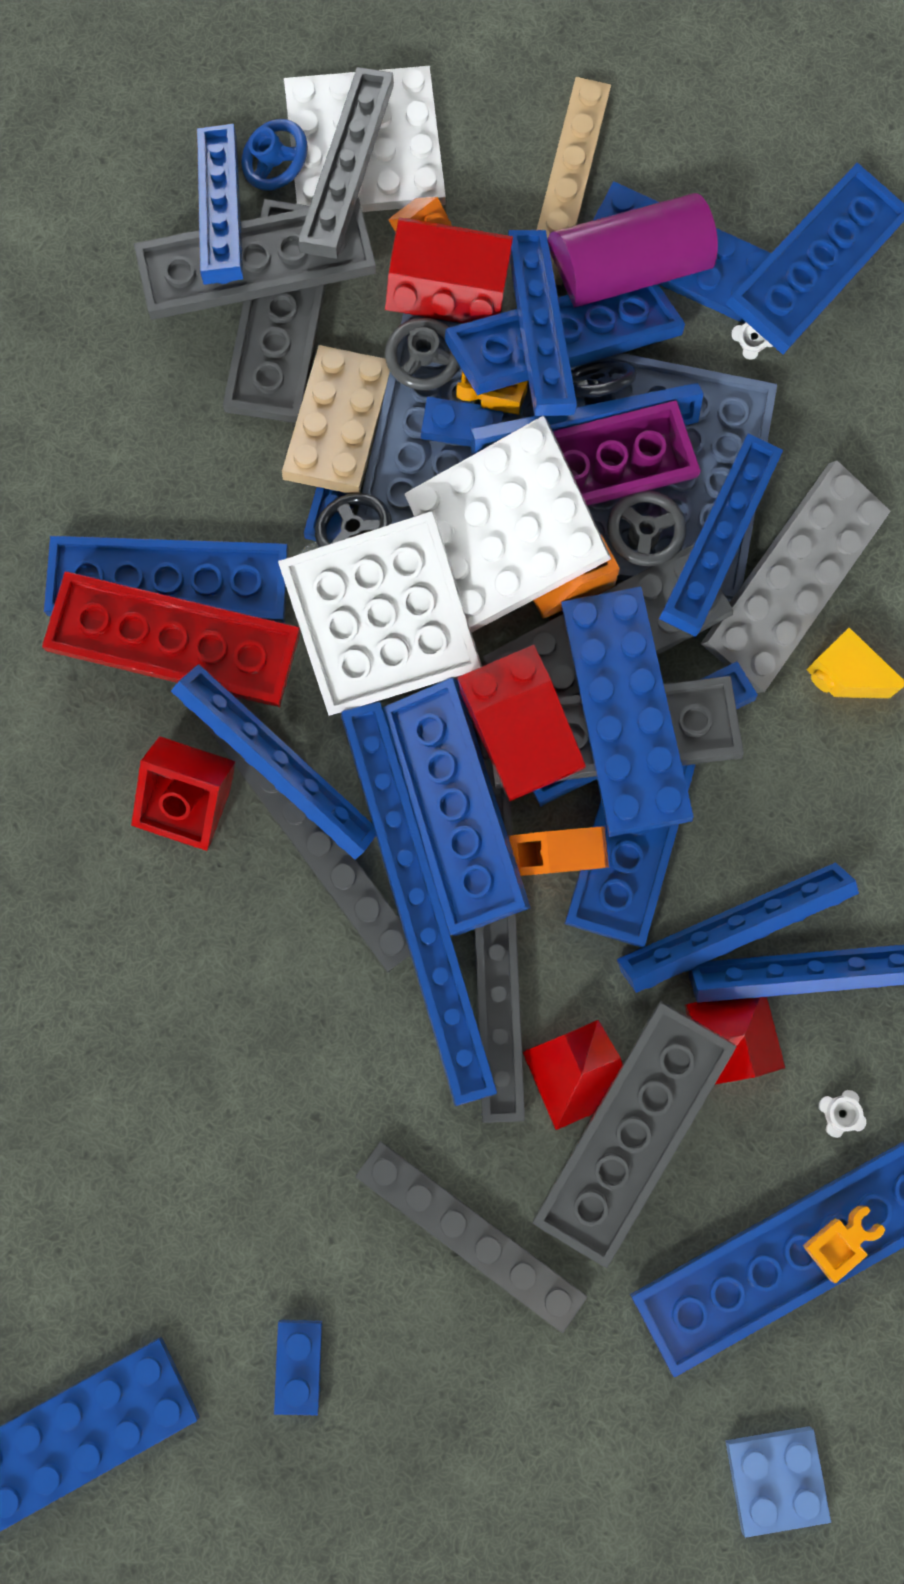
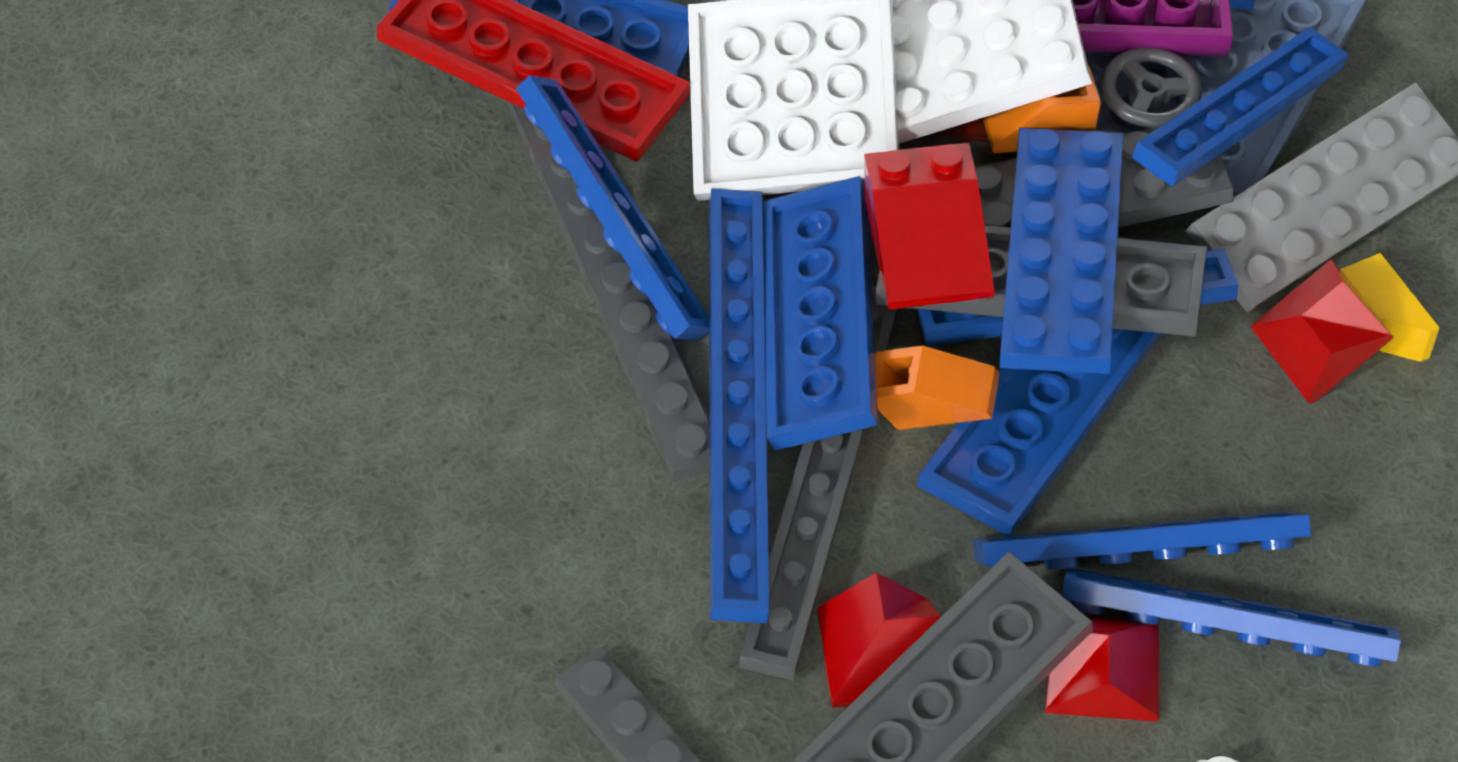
camera: 20 degrees right, 25 degrees down
(181, 792) = (485, 224): red slope -> none
(821, 706) = (1321, 332): none -> red slope

